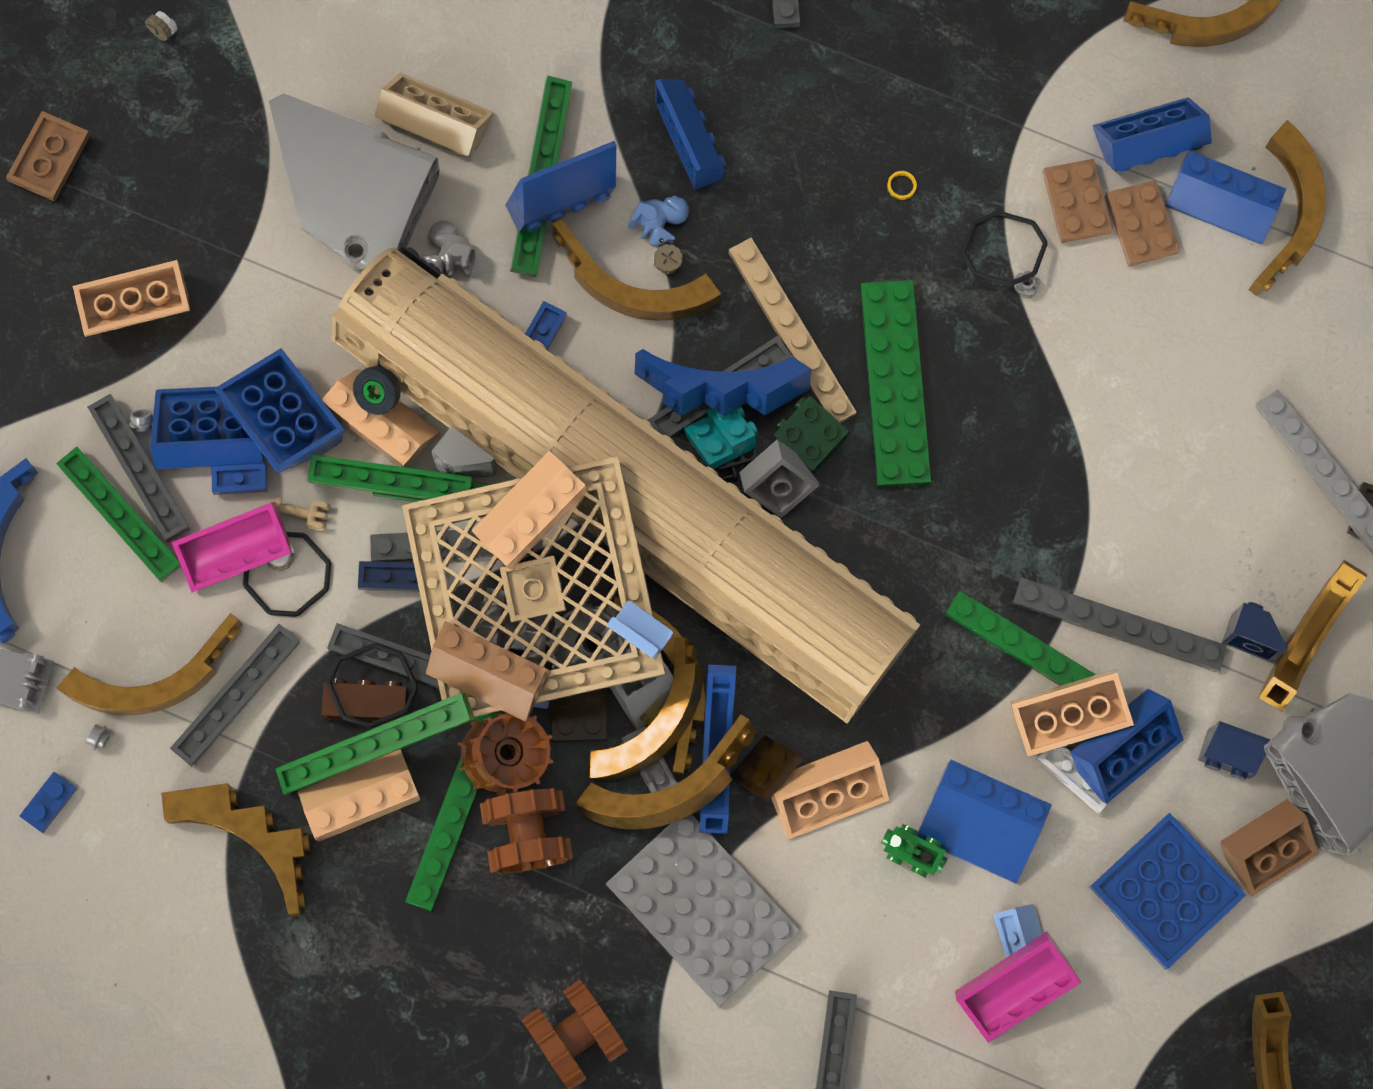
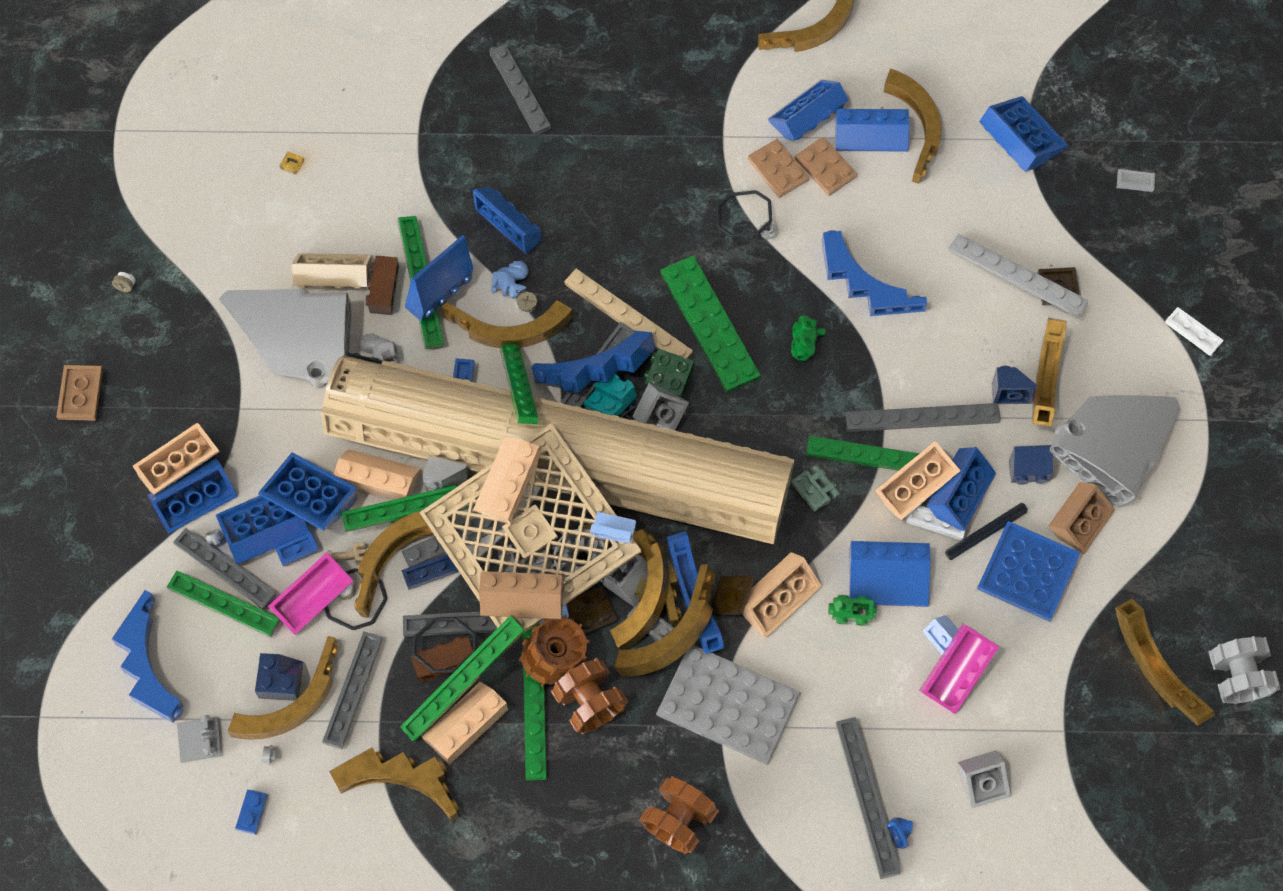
camera: 15 degrees left, 10 degrees down
(136, 354) = (193, 495): none -> blue slope
(149, 641) = (278, 677): none -> dark blue slope
(339, 528) = (381, 551): none -> pearl gold arch
(388, 391) = (377, 448): black bush -> none
(490, 161) = (382, 285): none -> reddish brown brick
(603, 378) = (519, 384): none -> green plate
(901, 197) = (660, 193): yellow piece -> none
(930, 668) = (811, 491): none -> sand green plate
(1011, 452) = (804, 338): none -> green brick
(1135, 814) = (985, 531): none -> black axle
(1136, 438) = (881, 297): none -> blue arch

